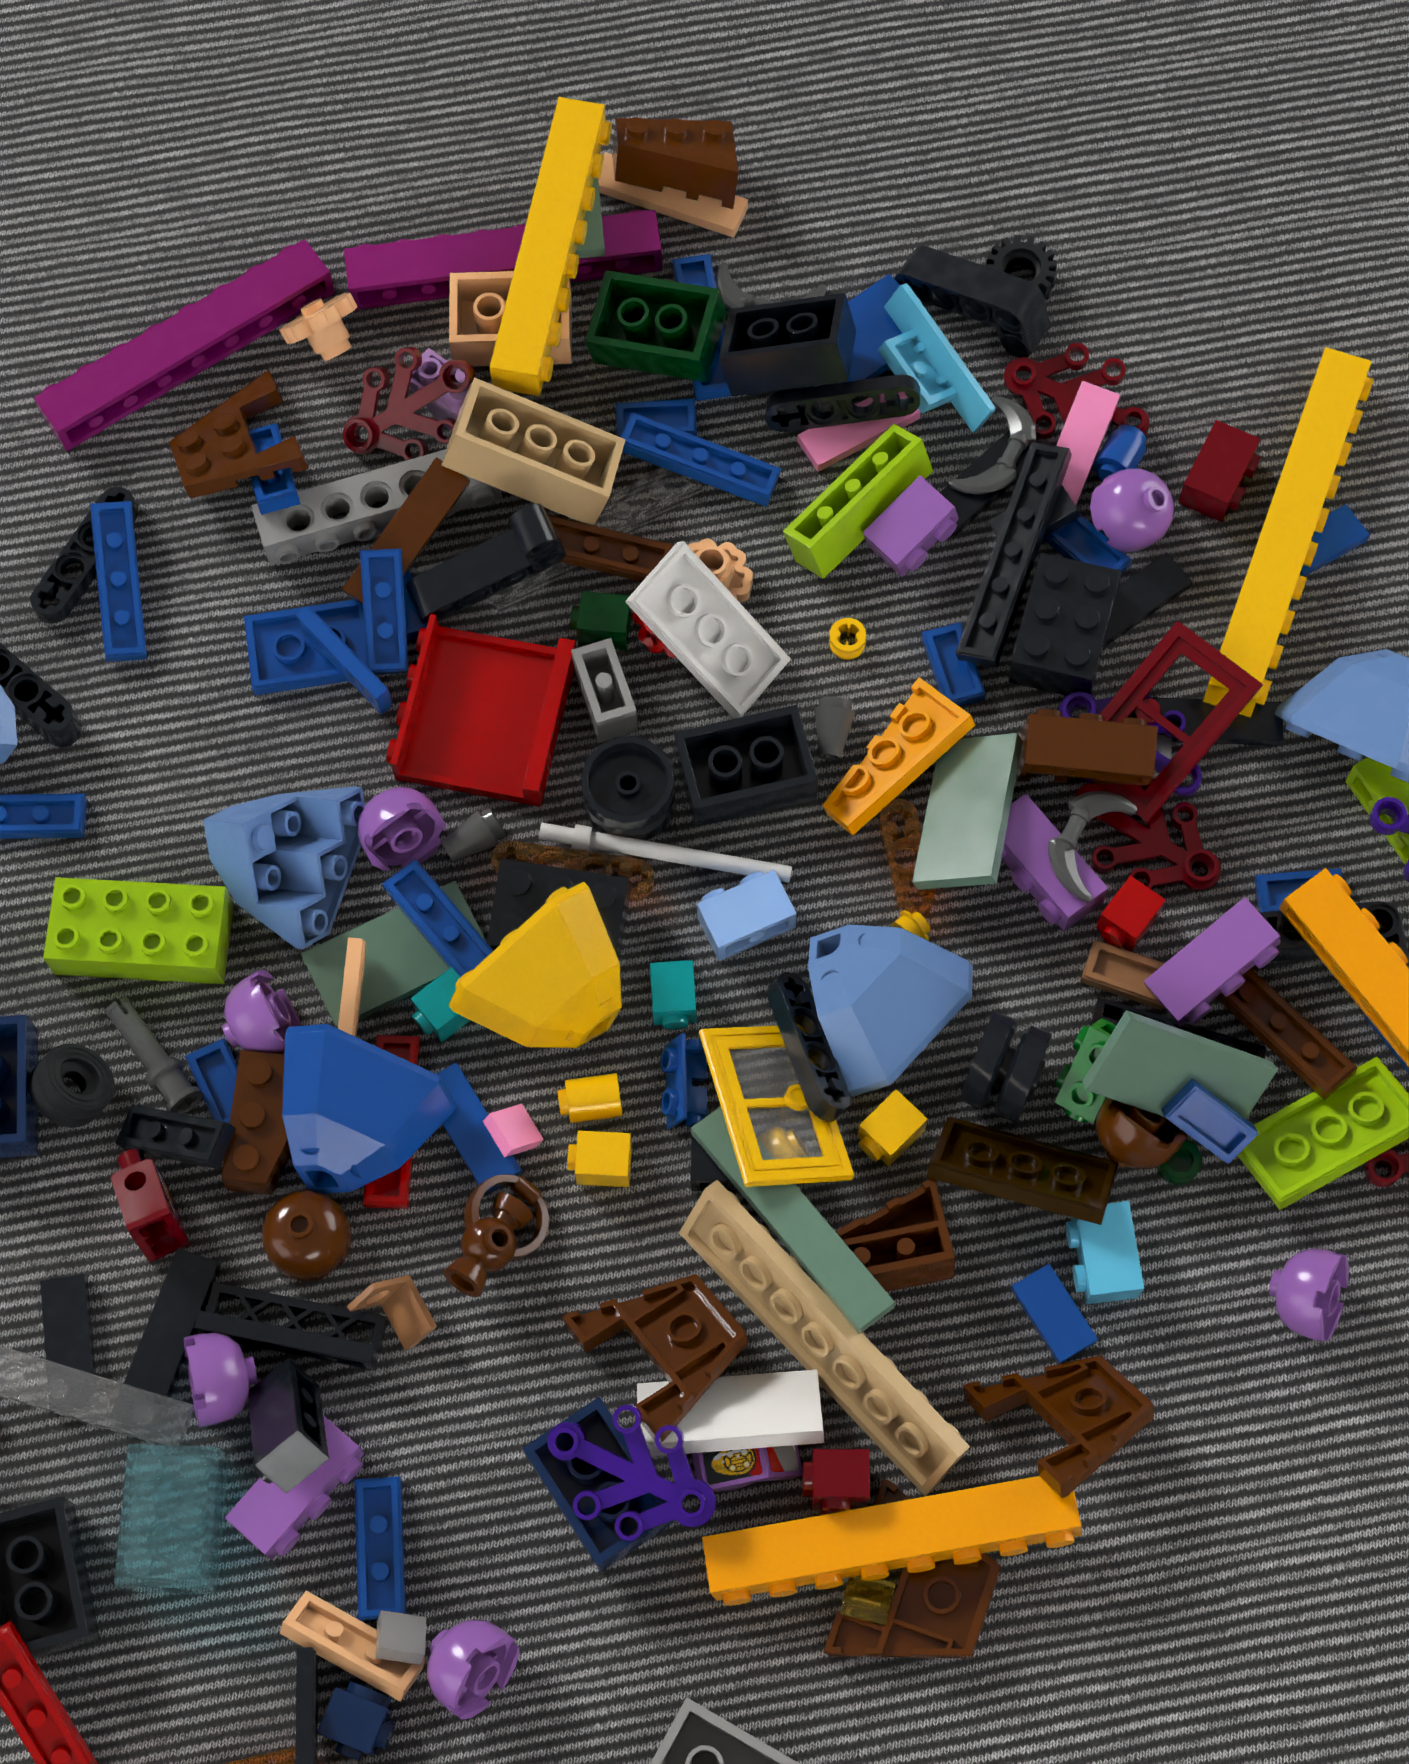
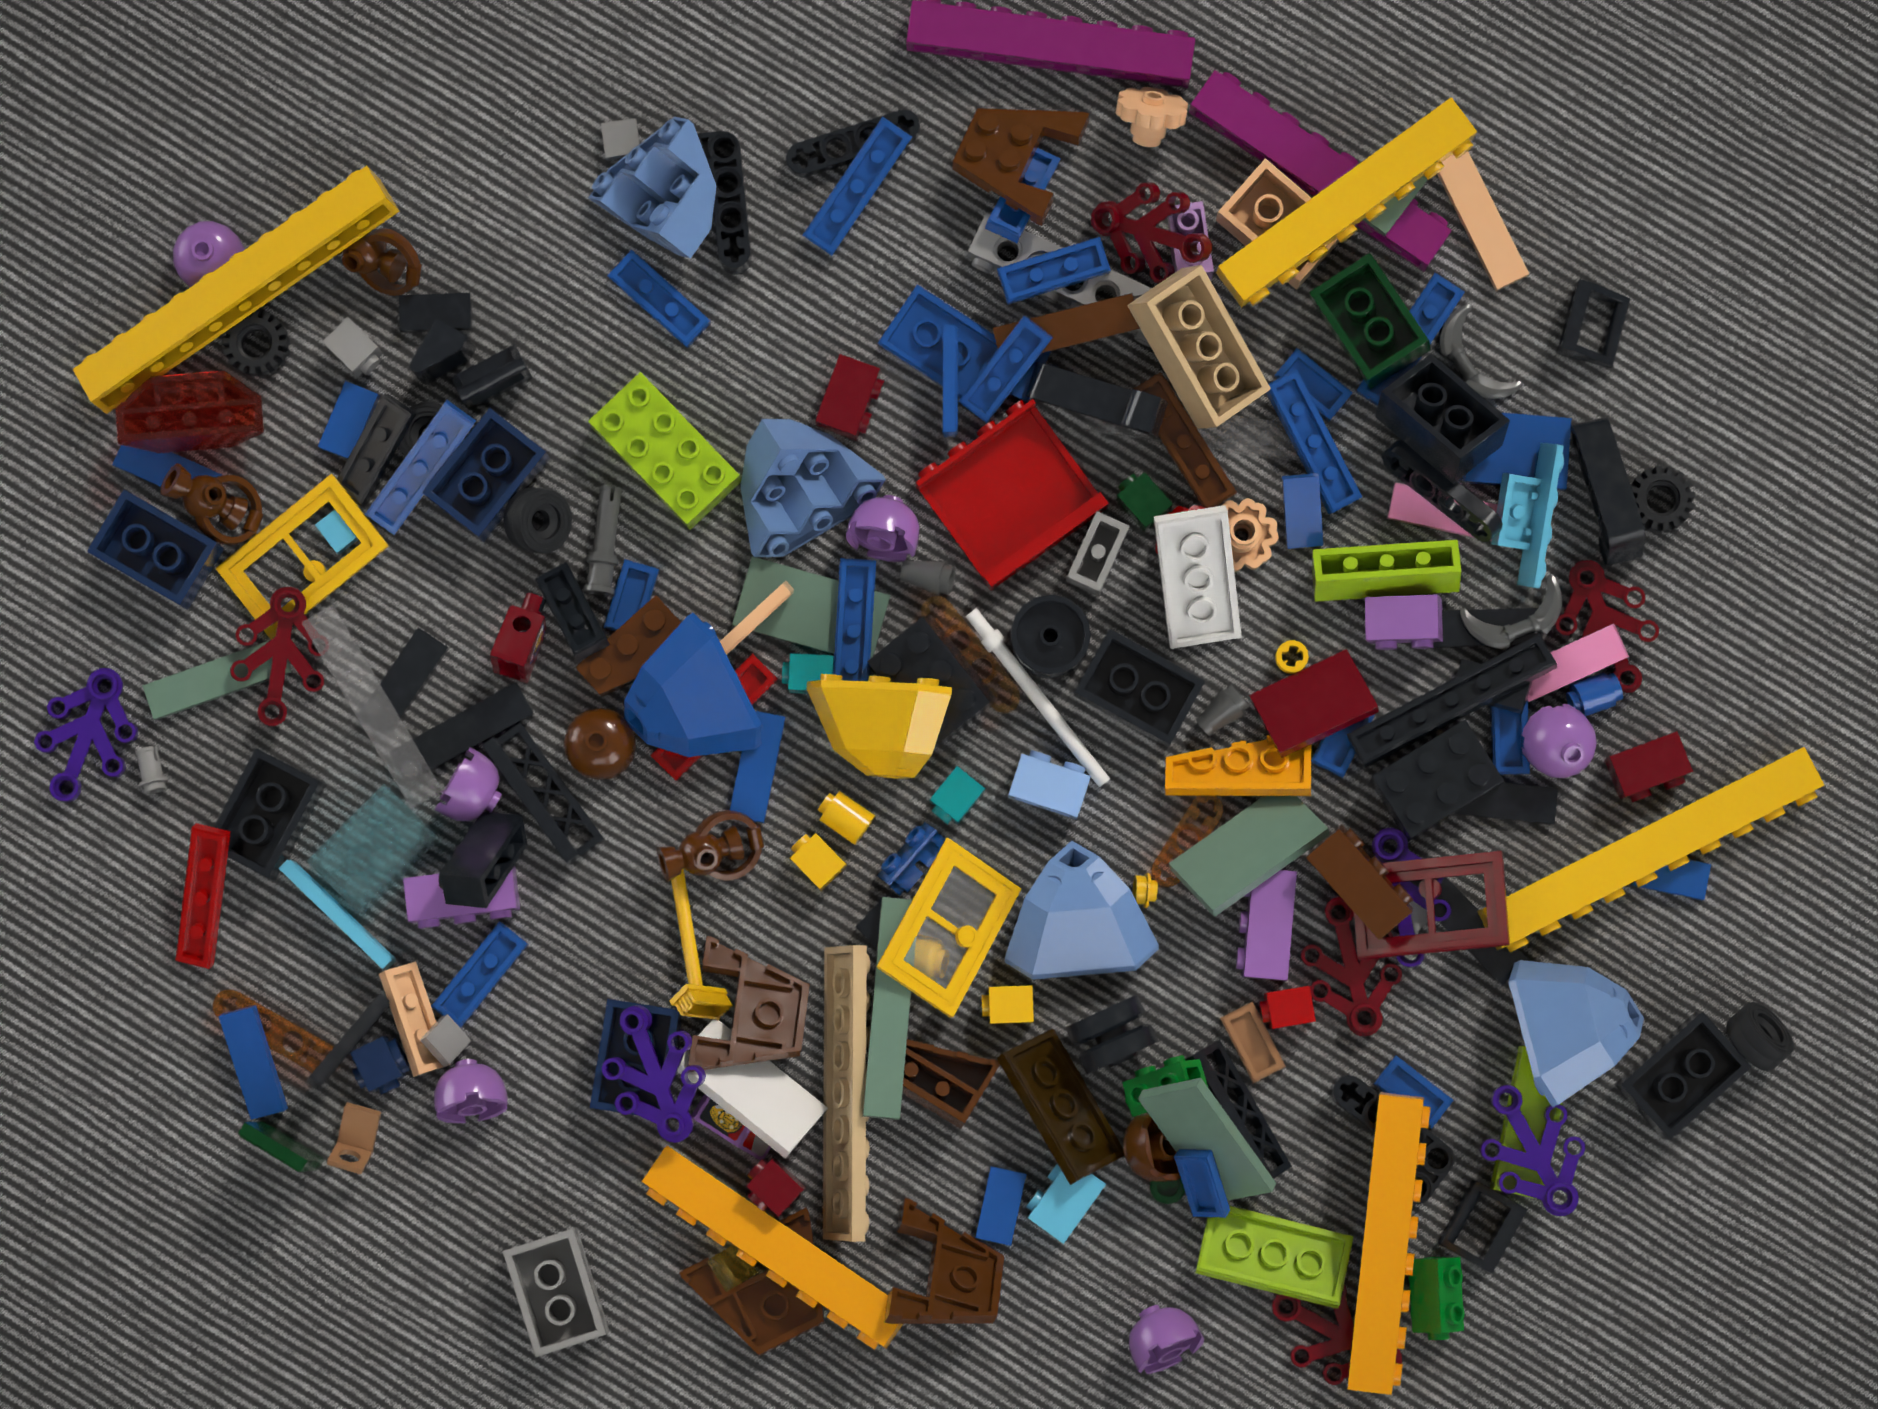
camera: 45 degrees right, 15 degrees up
(189, 1613) = (338, 914): none -> medium azure tile
(258, 1015) = (689, 581): medium lavender cylinder -> none
(266, 750) = (849, 397): none -> dark red brick
(352, 499) = (1053, 270): none -> blue tile
(402, 1307) = (616, 846): medium nougat bracket -> none
(513, 1130) = (780, 793): bright pink tile -> none
(601, 1375) = (694, 998): none -> yellow piece
(677, 155) = (1506, 203): reddish brown wedge -> none
(743, 516) = (1302, 510): none -> blue tile
(824, 1087) = (1001, 904): black beam -> none
(829, 219) = (1574, 320): none -> black tile
(903, 654) = (1314, 703): none -> dark red tile
(1062, 849) = (1279, 931): dark grey piece -> none
(1214, 963) = (1301, 1090): medium lavender brick -> none
(1289, 1035) = (1311, 1160): reddish brown tile -> none

